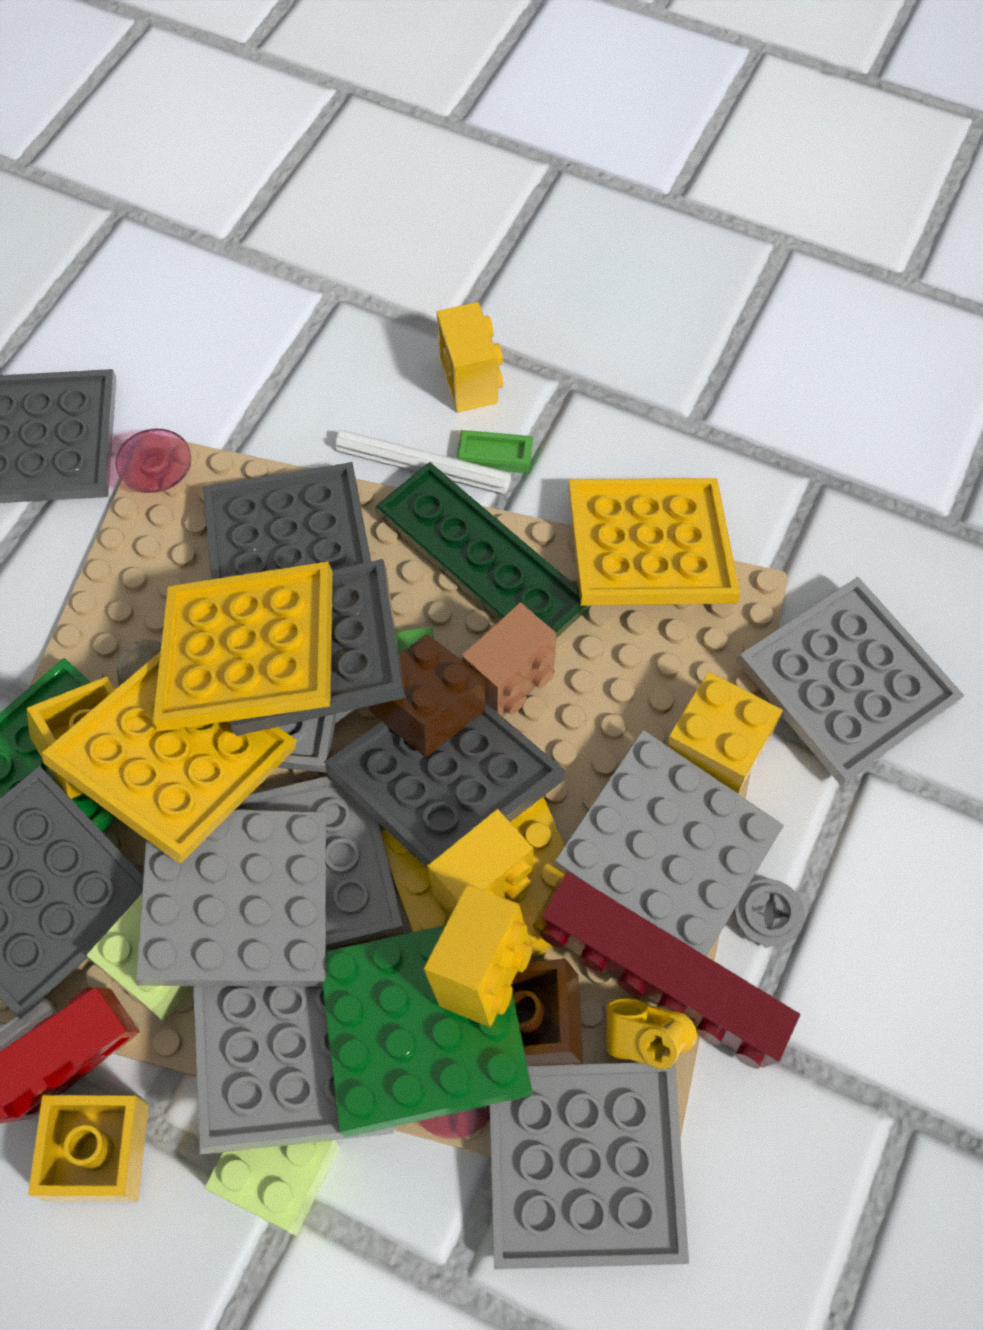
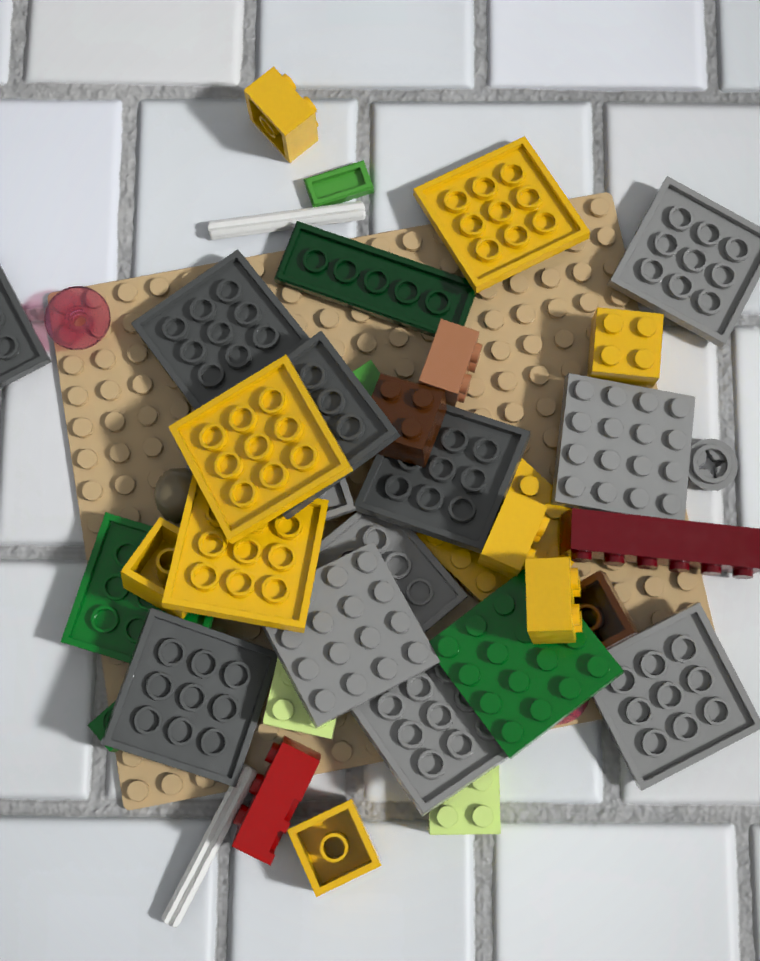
camera: 25 degrees left, 15 degrees up
(647, 1033) = (669, 594): yellow piece -> none

